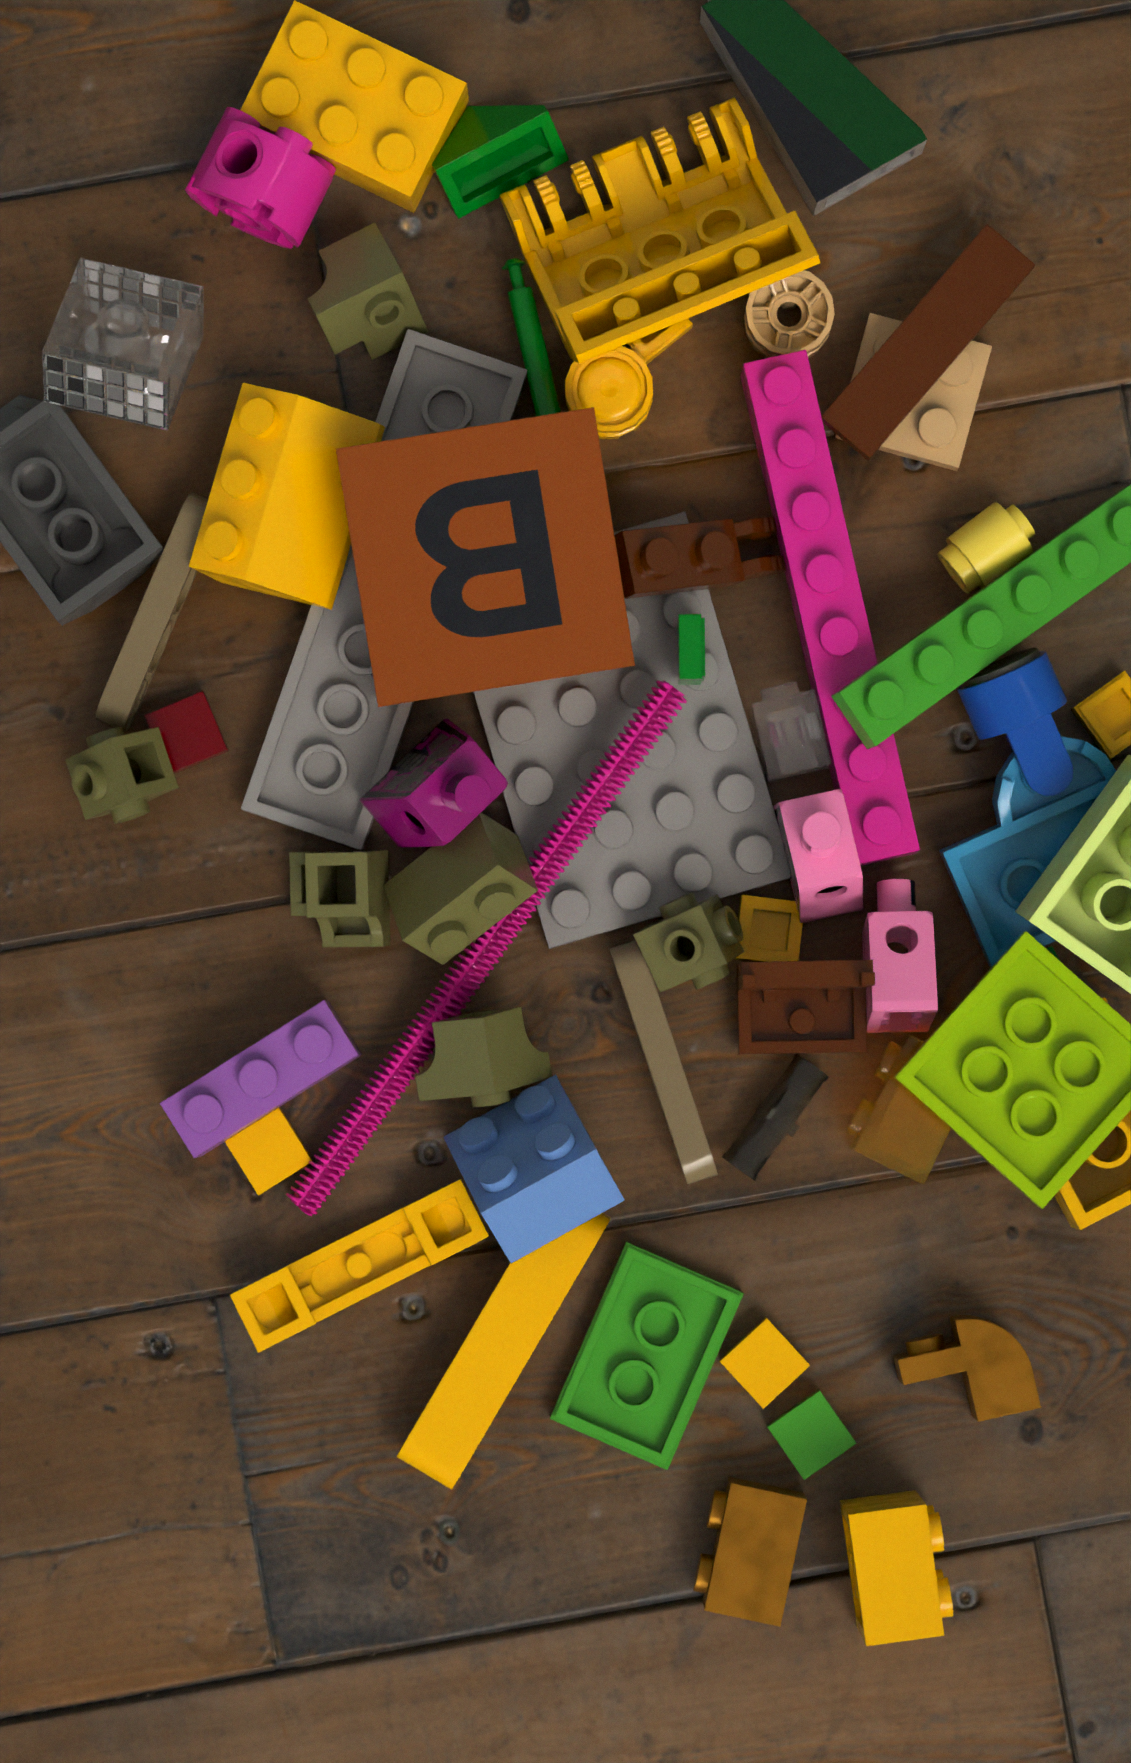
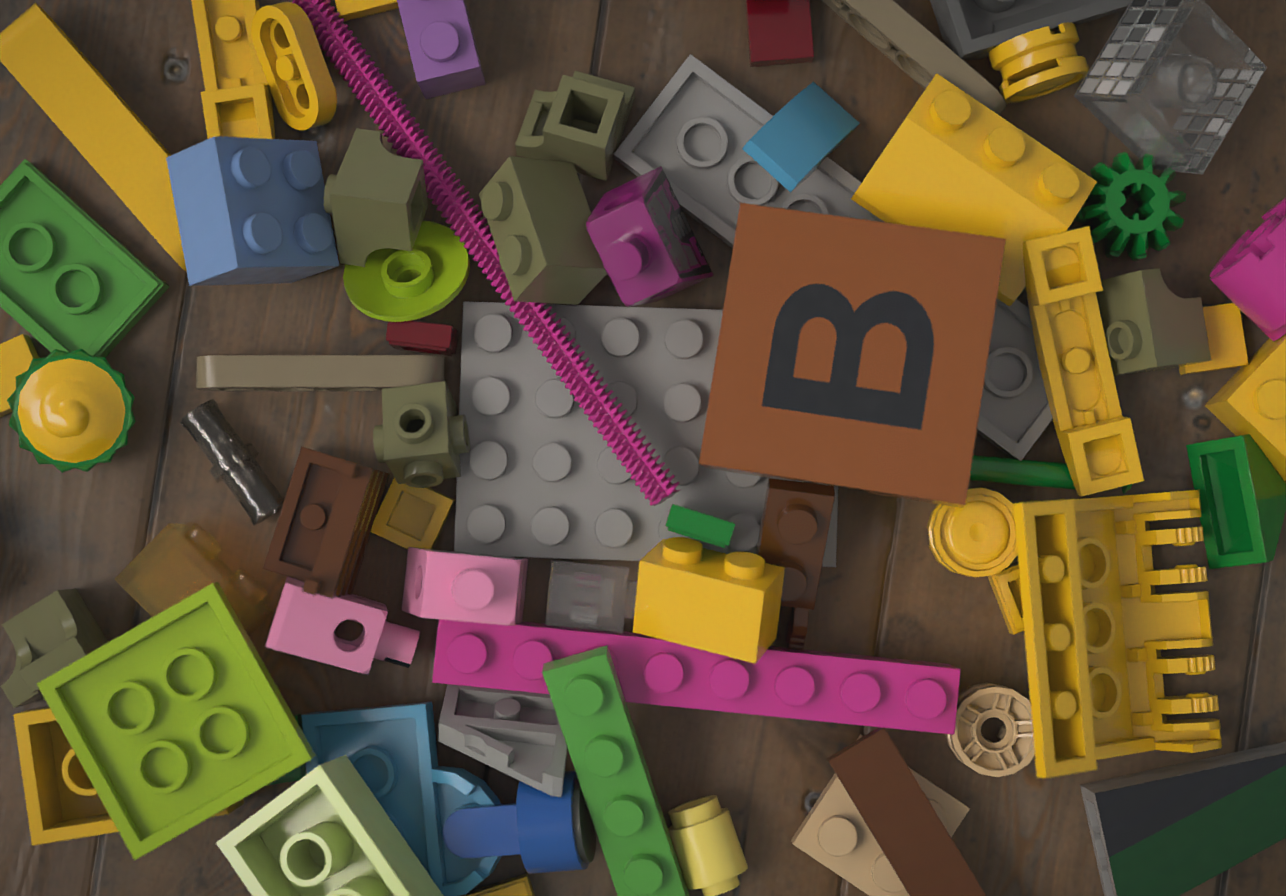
camera: 105 degrees right, 0 degrees up
(137, 478) = (1038, 63): none -> yellow wheel
(247, 322) = (1149, 220): none -> green gear
(287, 675) = (801, 136): none -> dark azure slope
(347, 216) = (1224, 339): none -> yellow tile
(376, 1185) = (294, 65): none -> yellow plate
(420, 345) = (1076, 362): none -> yellow slope
(524, 981) = (410, 283): none -> lime dish
(597, 974) = (422, 337): none -> dark red tile
(756, 618) = (708, 599): none -> yellow brick
(778, 1283) = (71, 410): none -> yellow piece
(942, 765) = (507, 732): none -> light grey wing
(1005, 1225) = (47, 640): none -> olive brick

